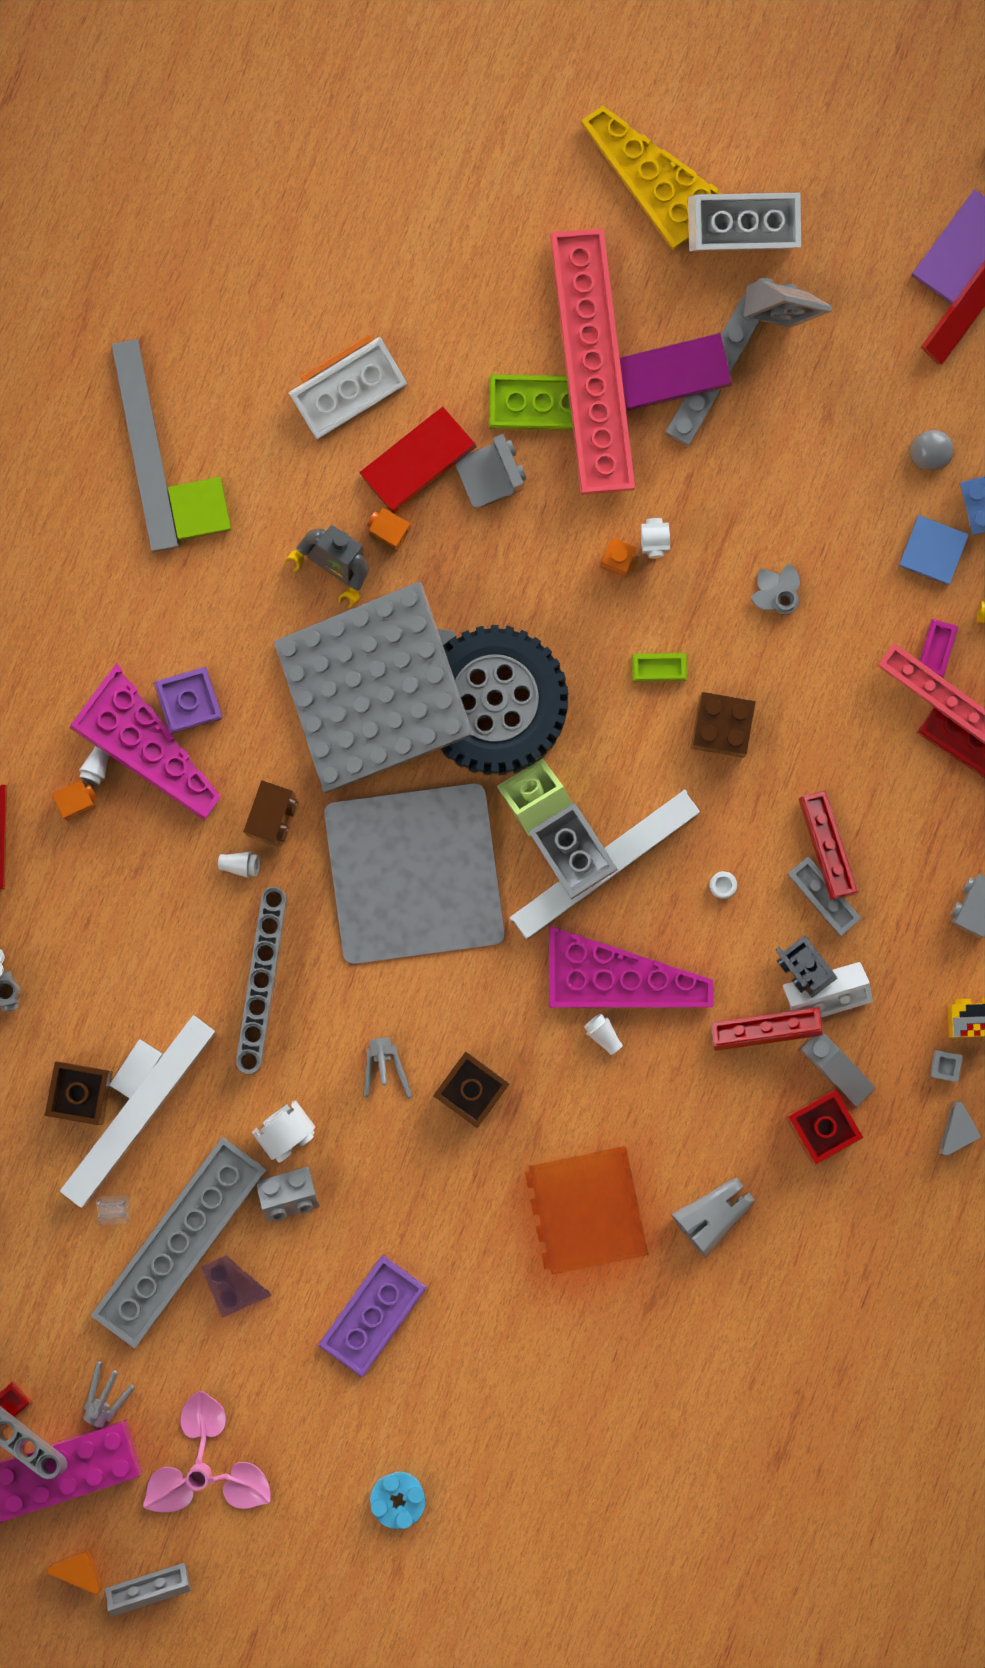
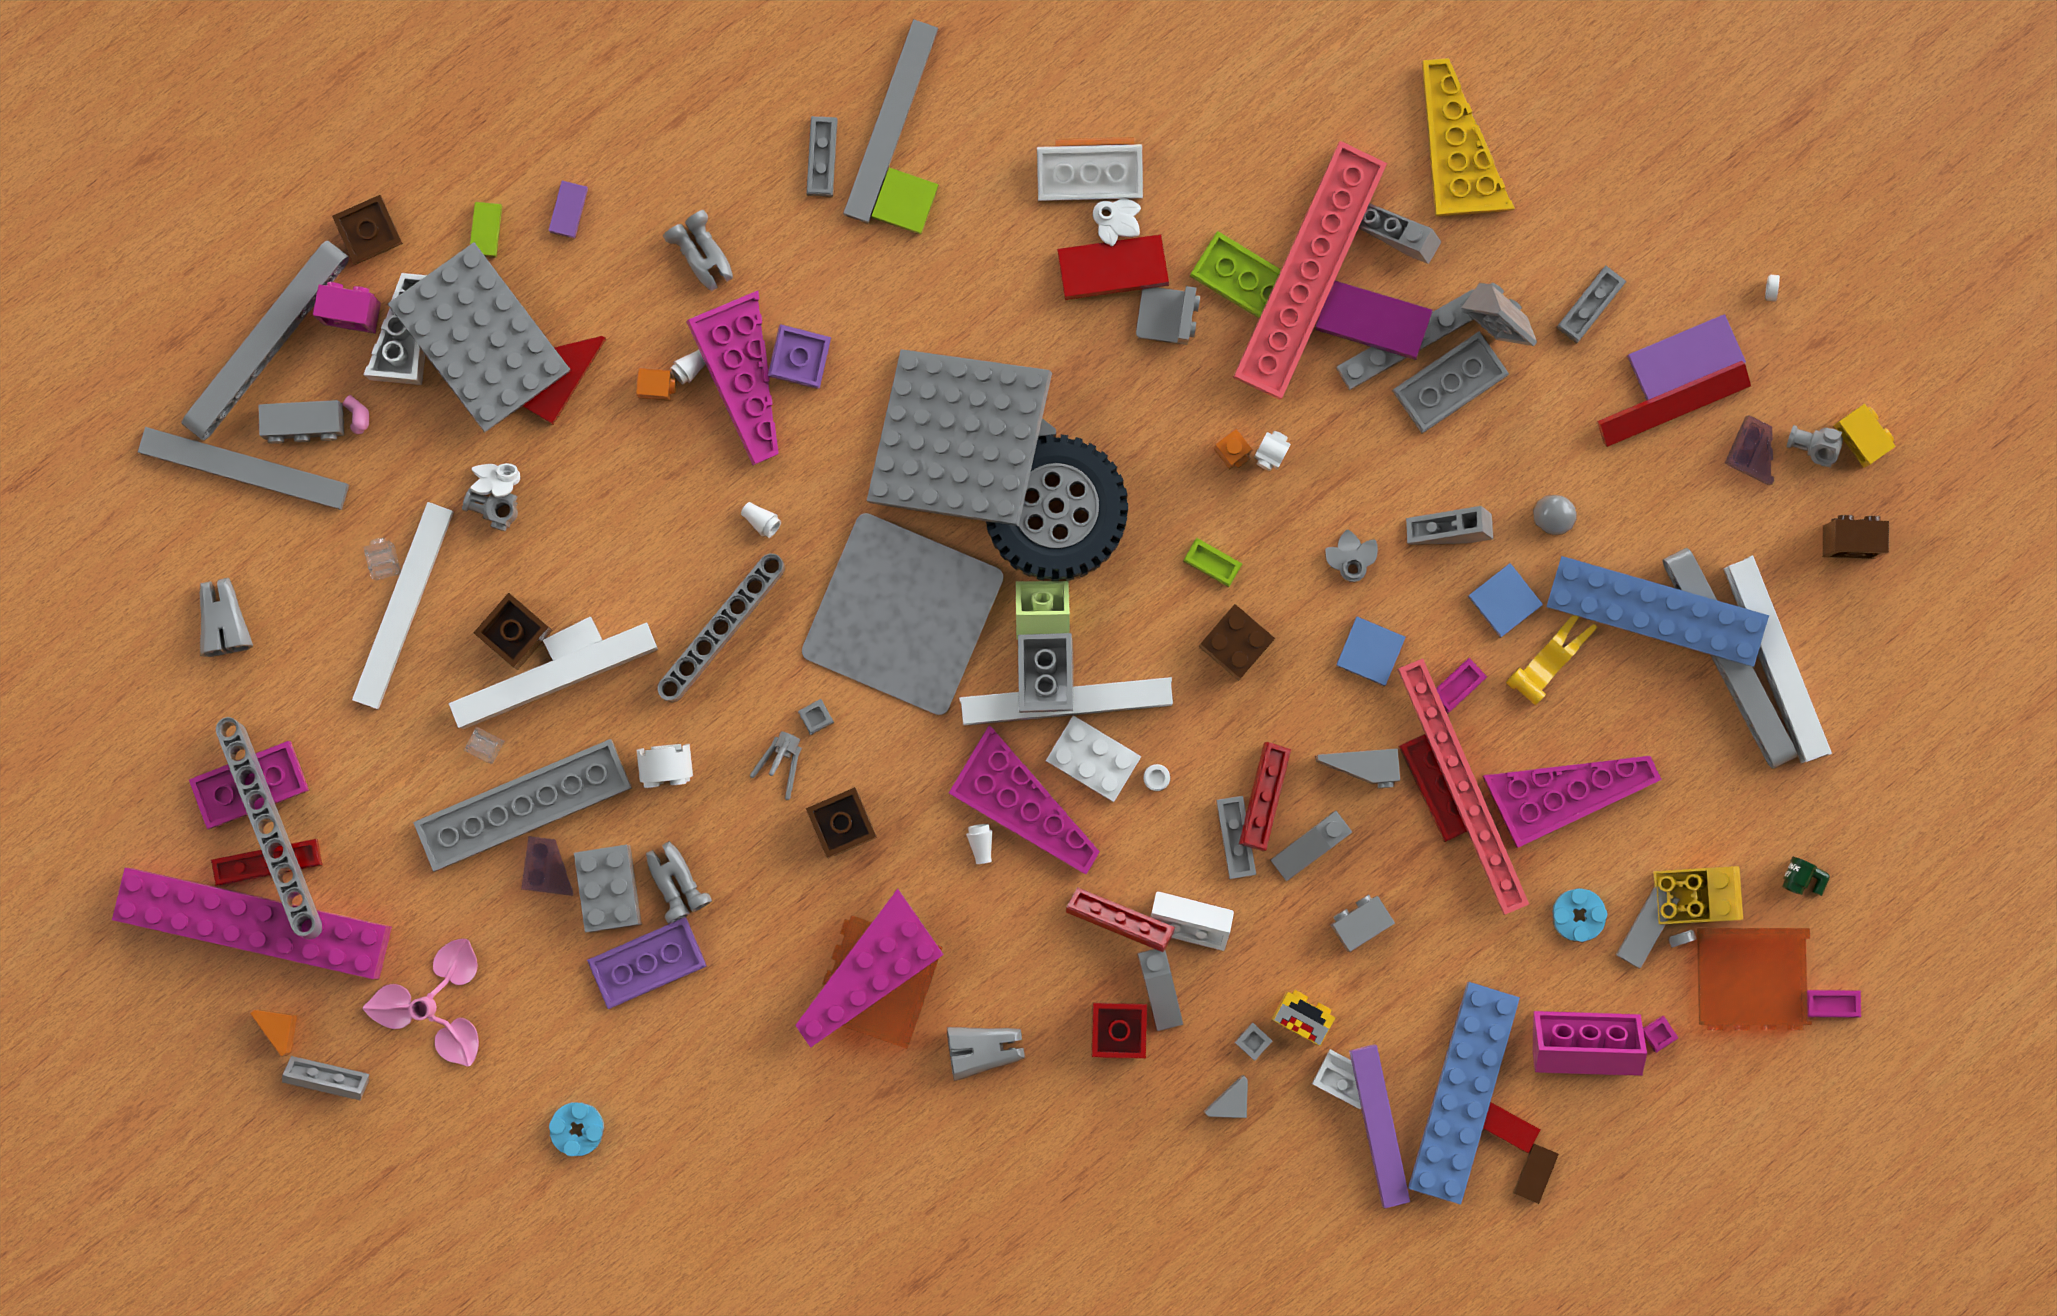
camera: 30 degrees right, 0 degrees up
(51, 671) = (699, 265): none -> light grey piece
(97, 1411) = (372, 906): light grey plant -> none
(102, 512) = (822, 156): none -> light grey tile
(270, 814) = (811, 492): reddish brown brick -> none
(287, 1194) = (636, 819): light grey bracket -> none
(299, 1271) = (607, 888): none -> light grey brick
(337, 555) = (996, 307): dark grey torso -> none
(343, 1233) = (663, 878): none -> light grey piece
(388, 528) = (1053, 311): orange brick -> none
(392, 1009) = (815, 716): none -> light grey tile
(400, 416) = (1119, 222): none -> white plate
(578, 1194) = (882, 959): none -> dark pink wing
(652, 282) = (1401, 233): none -> light grey slope
(657, 901) = (1093, 758): none -> white plate
(744, 221) = (1509, 227): white brick -> none
(772, 388) = (1450, 382): none -> light grey tile
(807, 965) = (1185, 887): black bracket -> none
(843, 663) = (1370, 651): none -> medium blue tile
(848, 514) = (1450, 527): none -> light grey slope
(853, 248) = (1591, 304): none -> light grey tile
(894, 864) = (1311, 845): none -> light grey slope
(900, 766) = (1368, 766): none -> light grey slope

